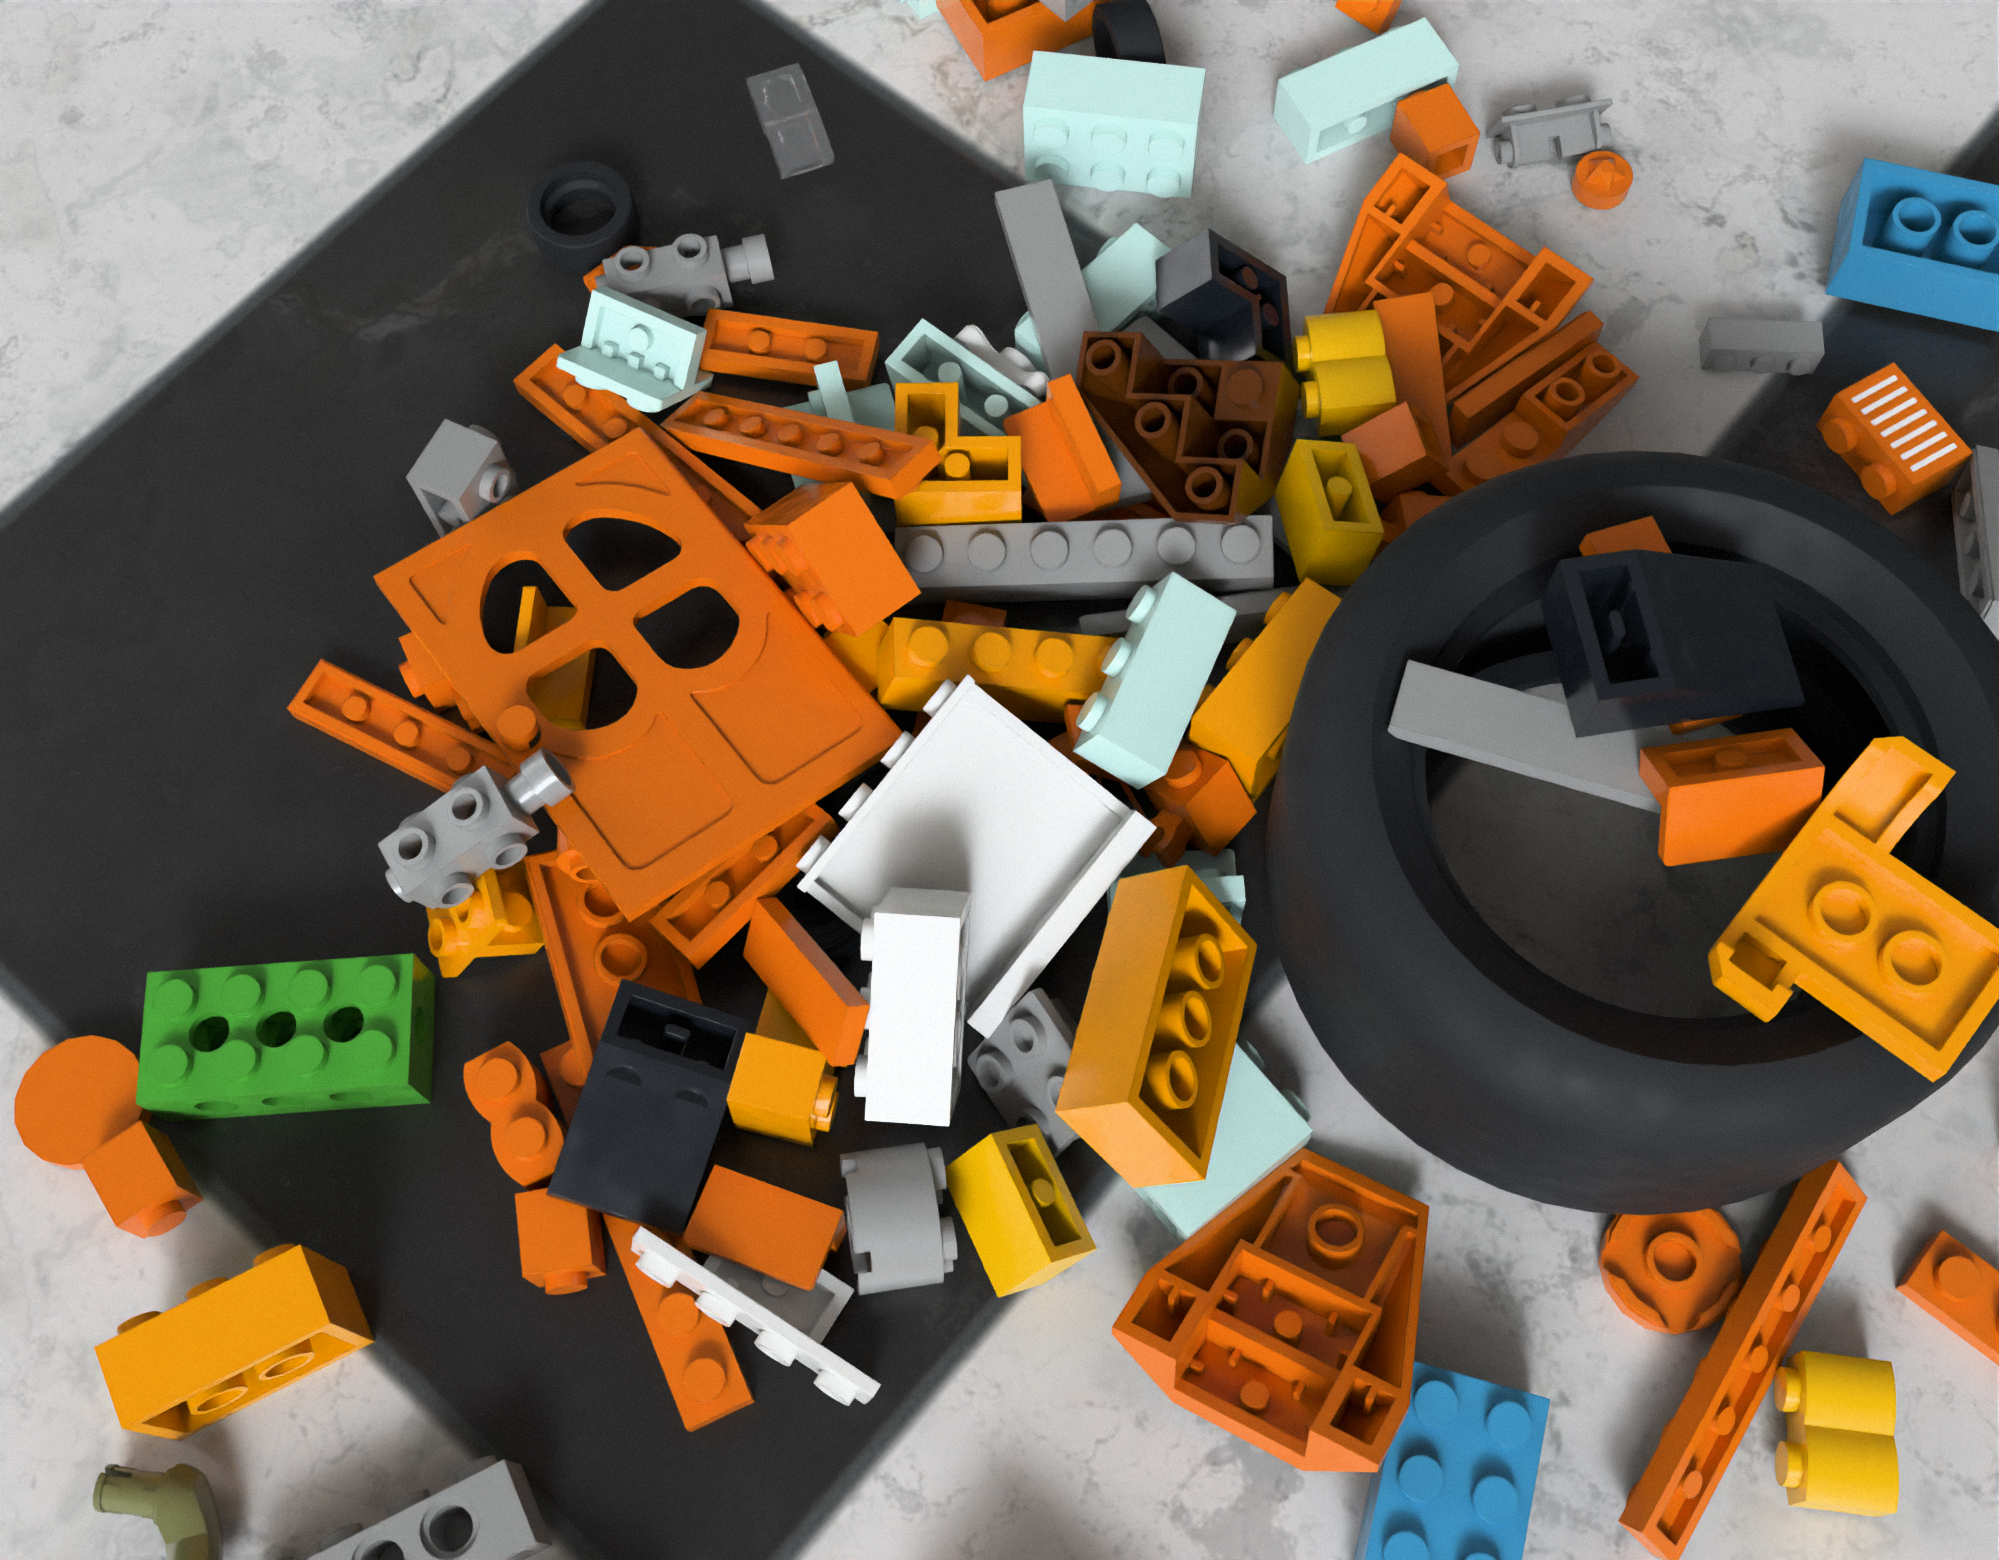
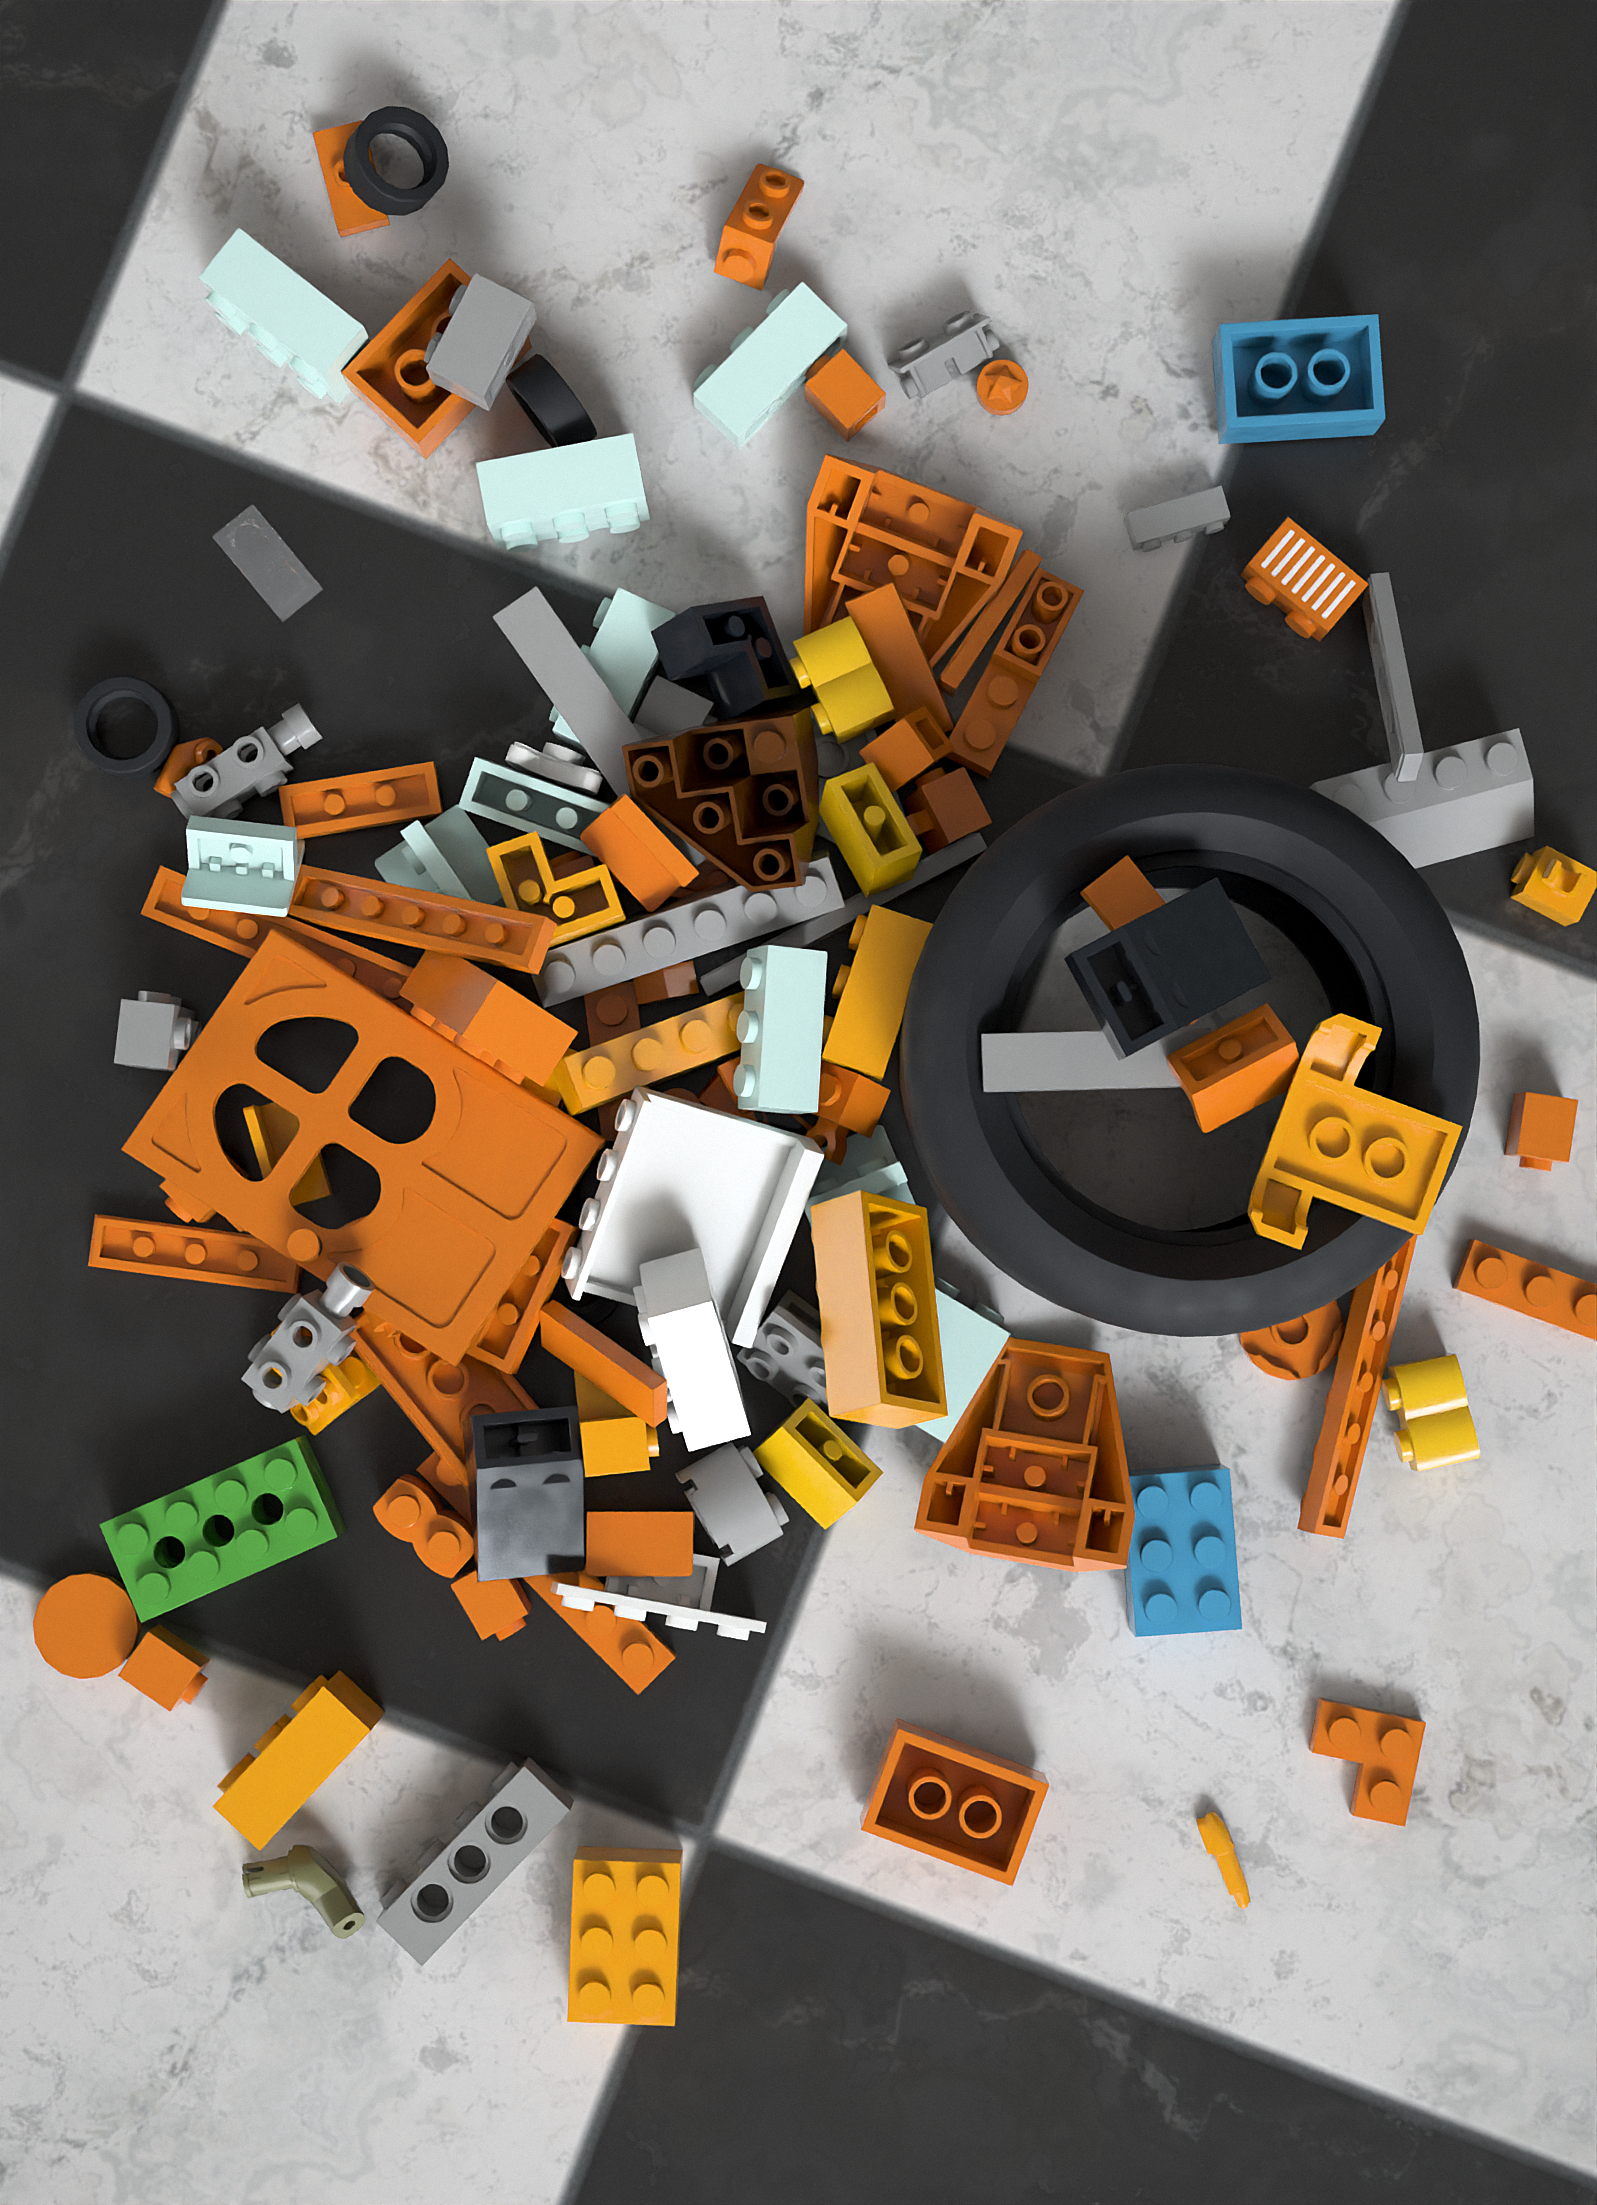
camera: 25 degrees left, 20 degrees up
(1040, 614) = (666, 984): none -> orange piece

